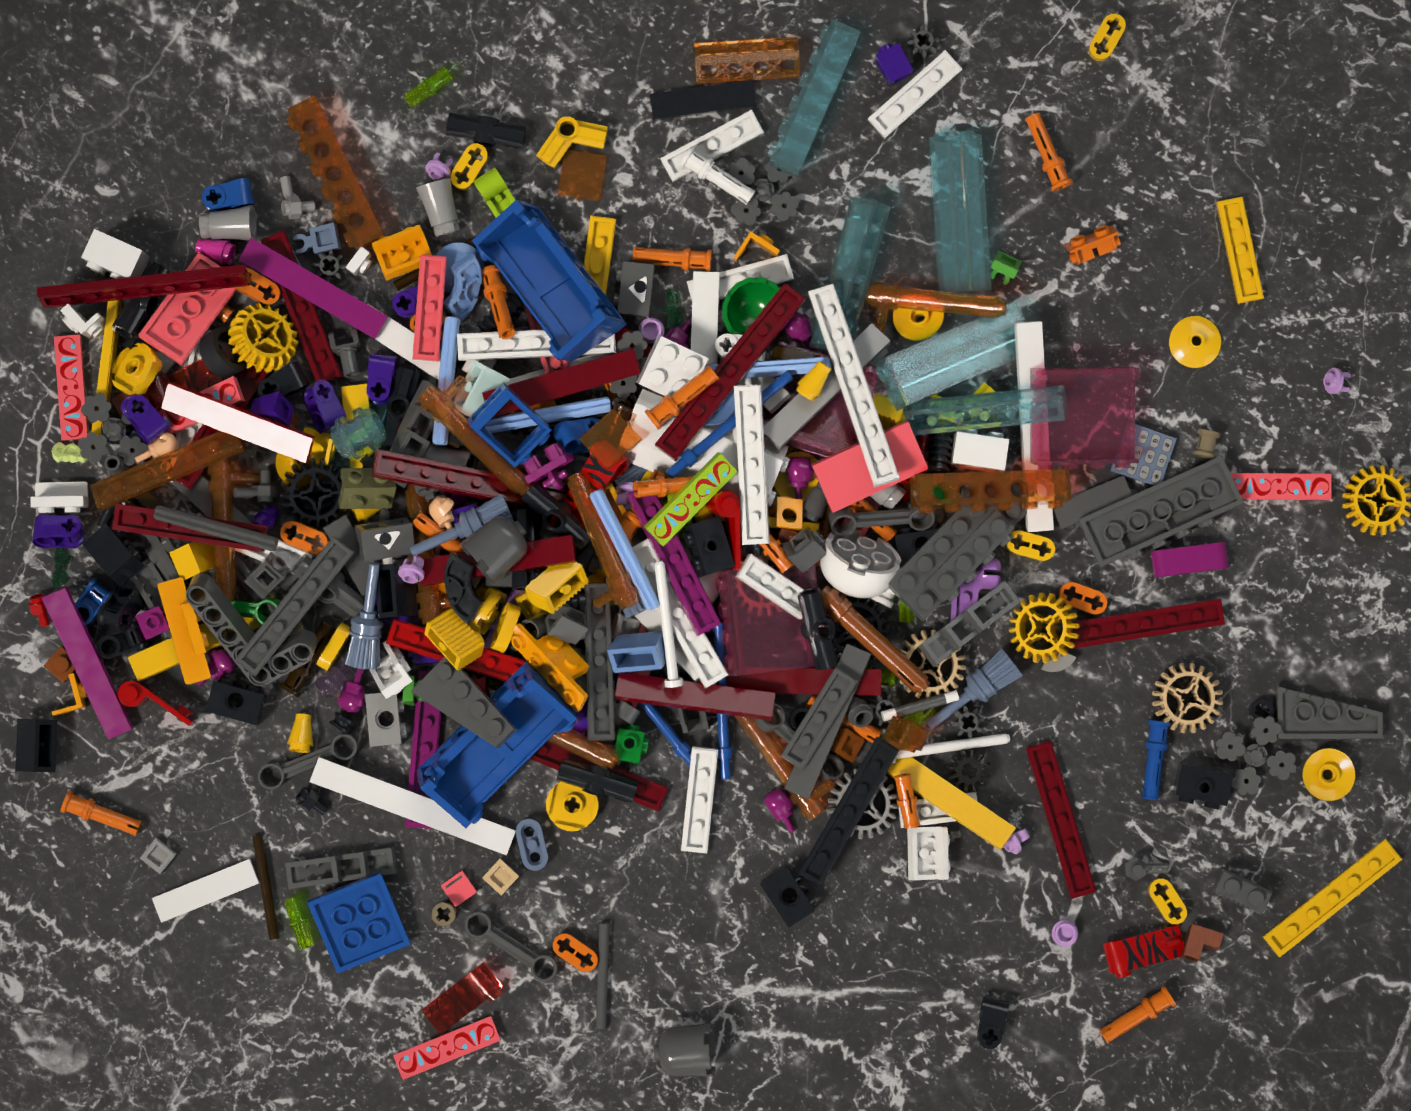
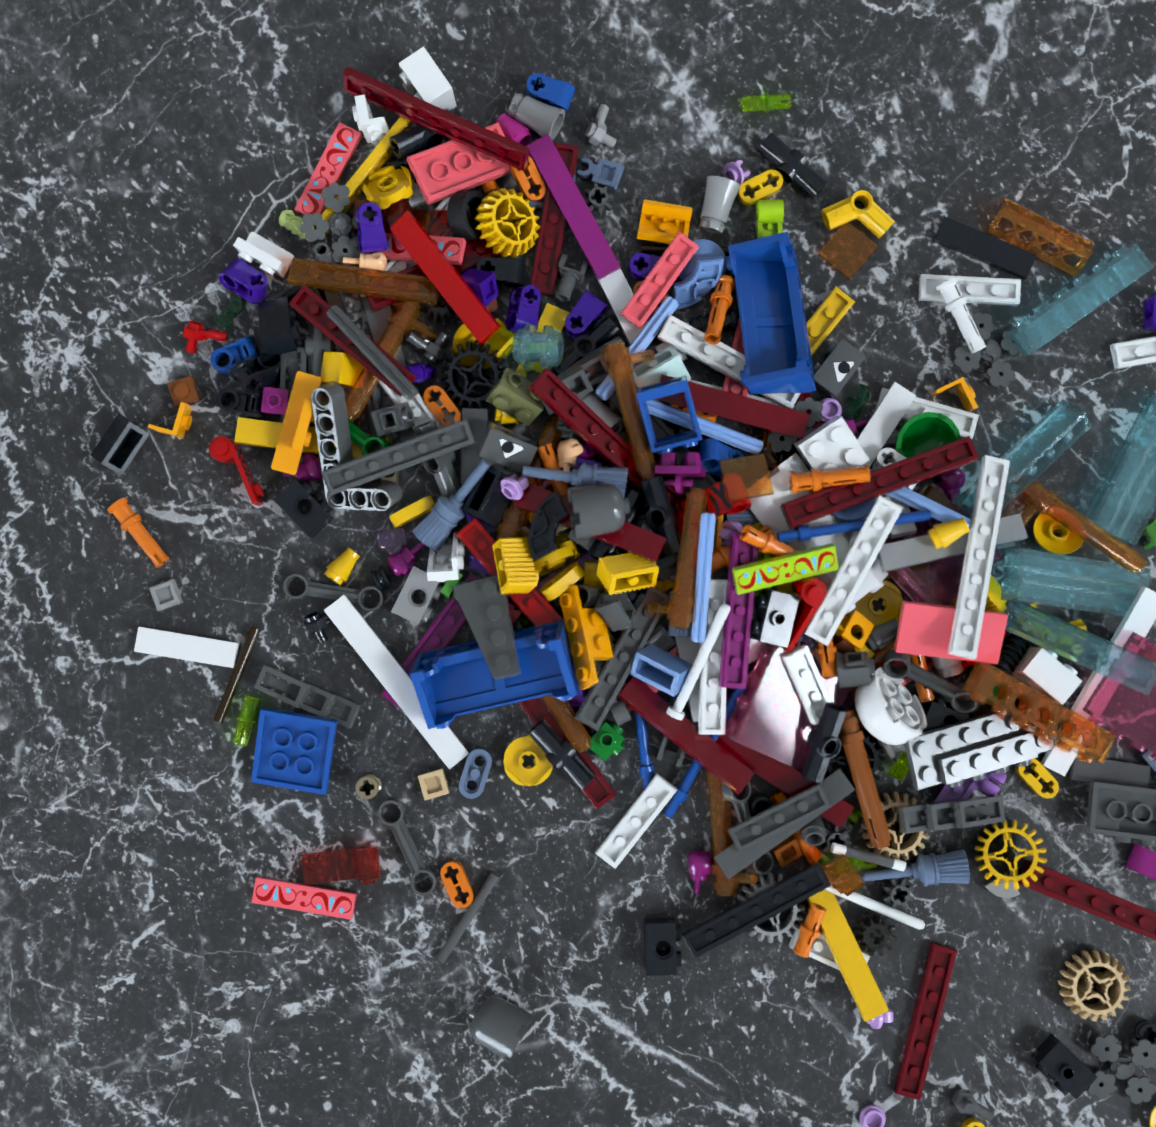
camera: 35 degrees right, 0 degrees up
(87, 662) = (202, 400): magenta tile -> none
(298, 677) = (368, 518): dark brown pin -> none
(311, 111) = (657, 64): clear orange brick -> none
(359, 262) = (624, 210): white plate -> none
(458, 888) = (393, 772): coral tile -> none
(686, 259) = (893, 368): orange pin -> none
(799, 474) = (883, 601): magenta piece -> none
(928, 853) = (800, 983): white bracket -> none
(1084, 591) = (1058, 843): orange beam -> none
(1156, 746) = (1043, 1009): blue pin -> none

